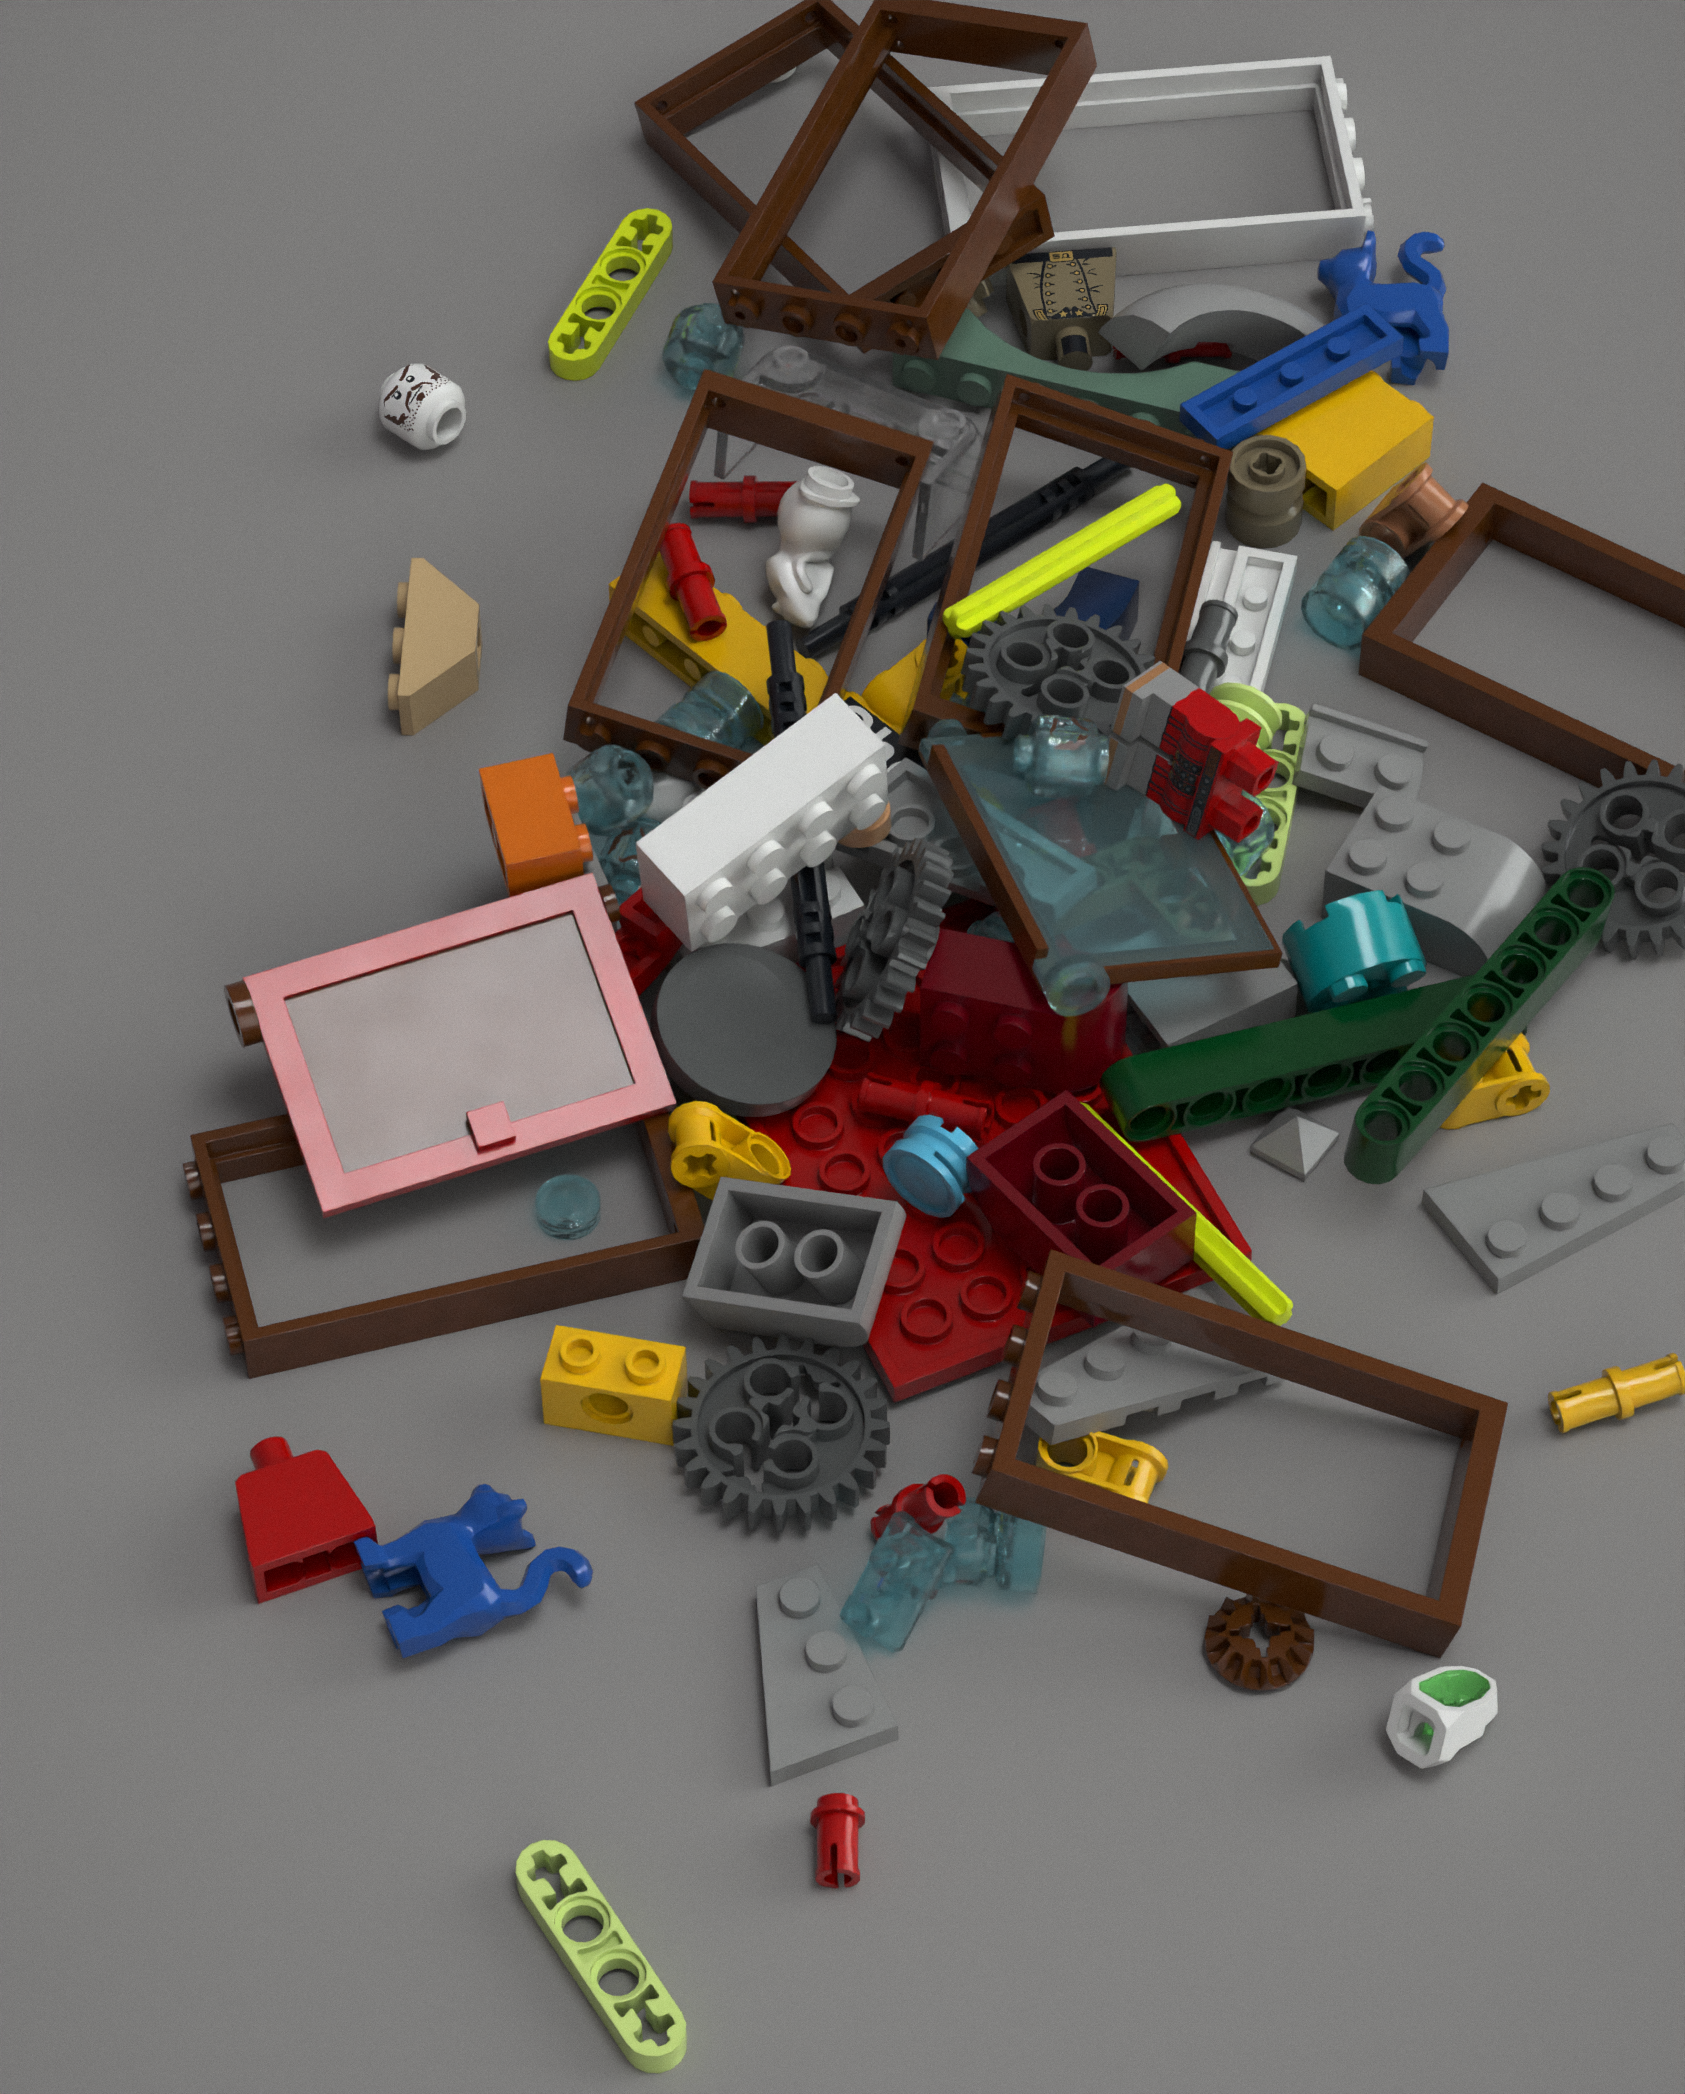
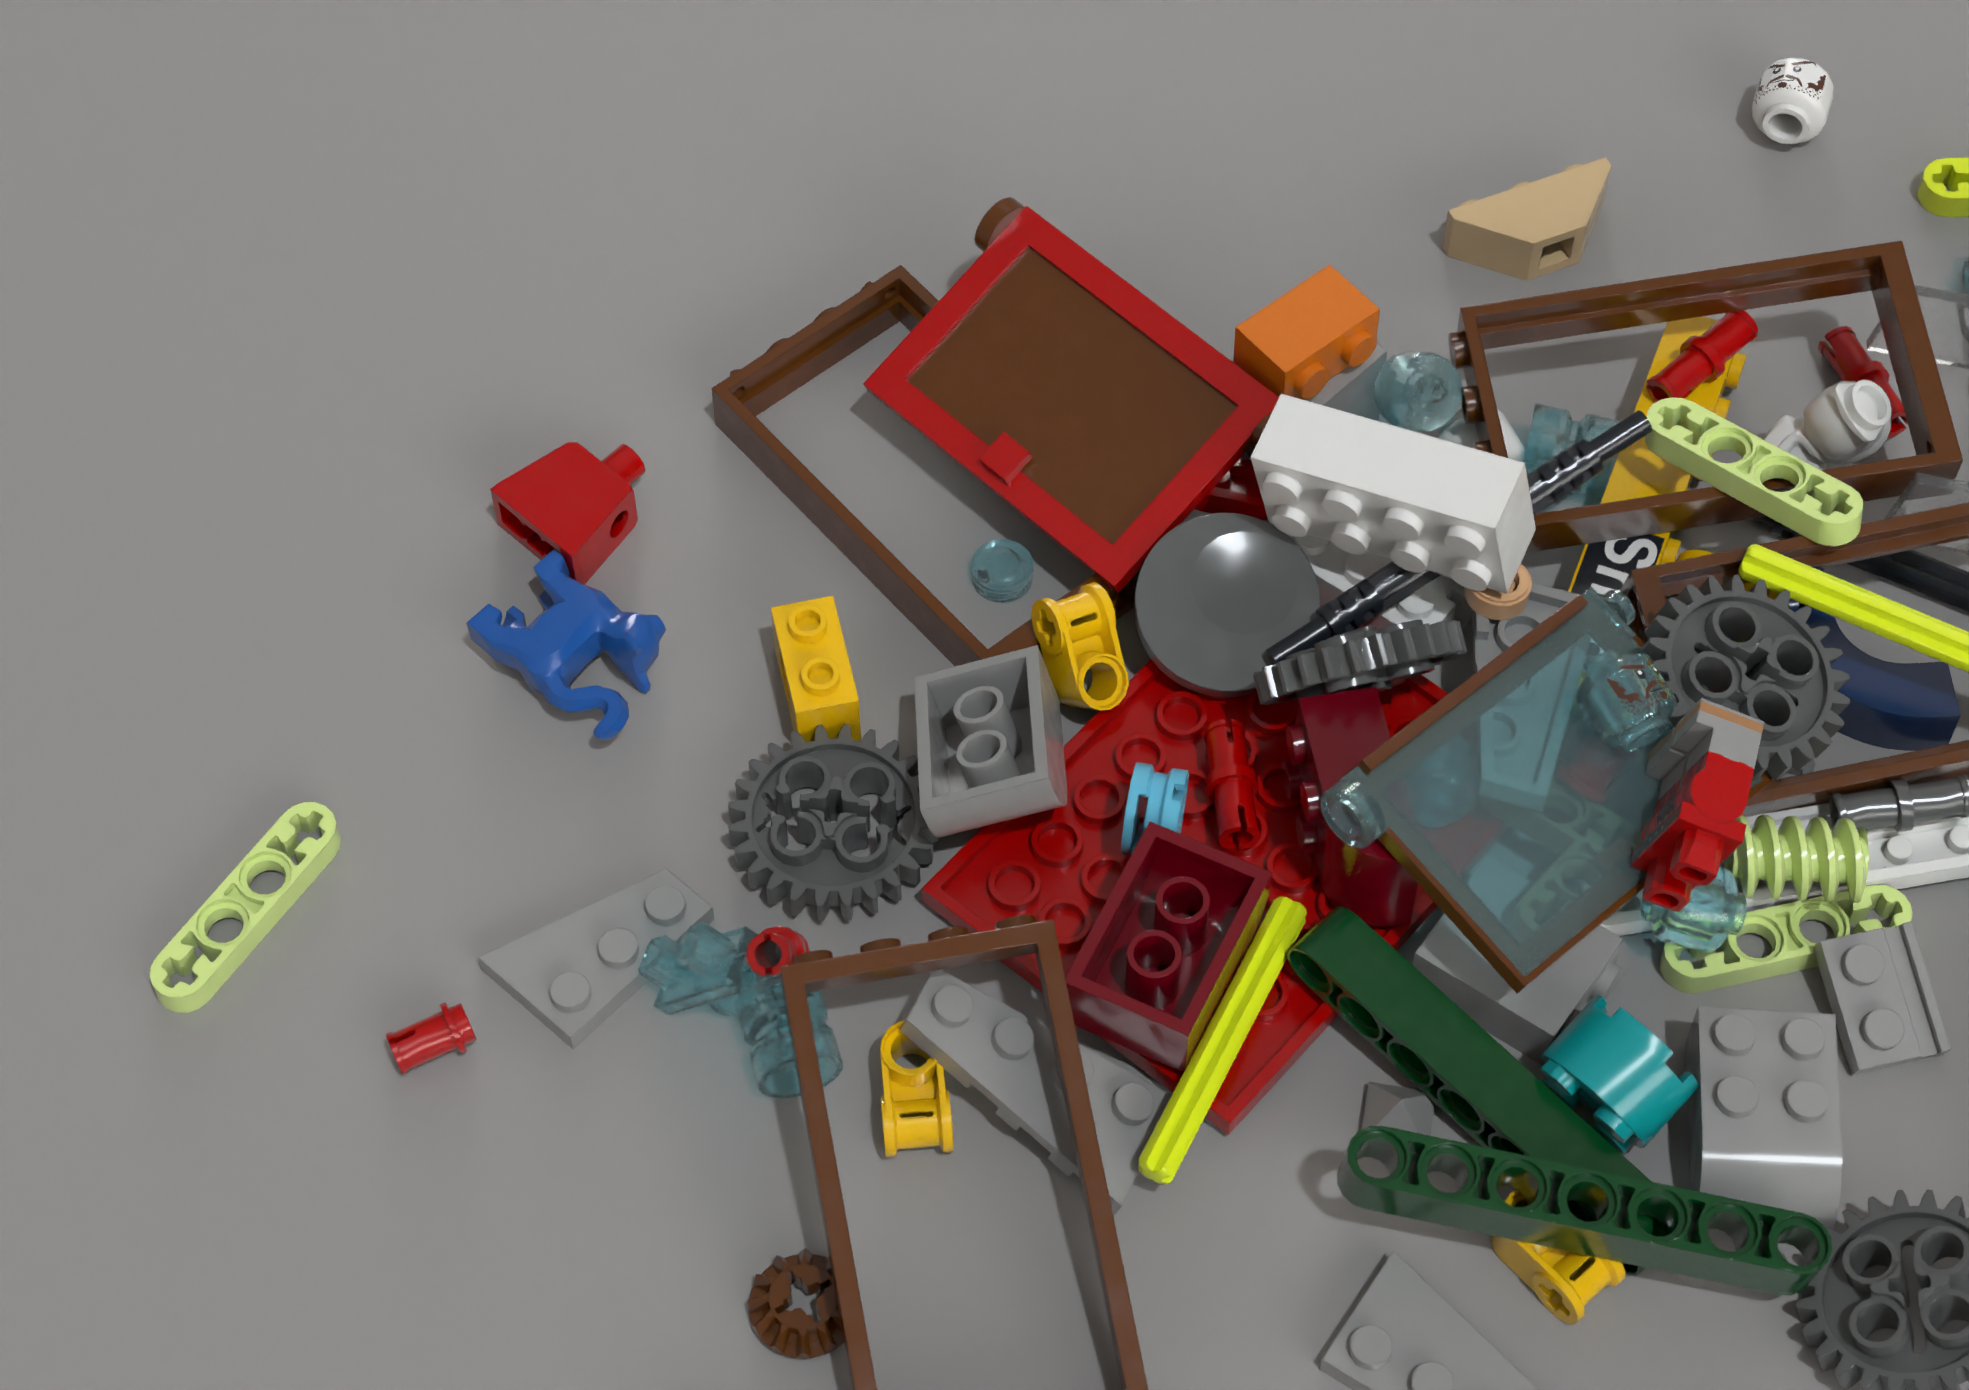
camera: 65 degrees right, 5 degrees up
(859, 574) = (1815, 508): none -> yellowish green beam

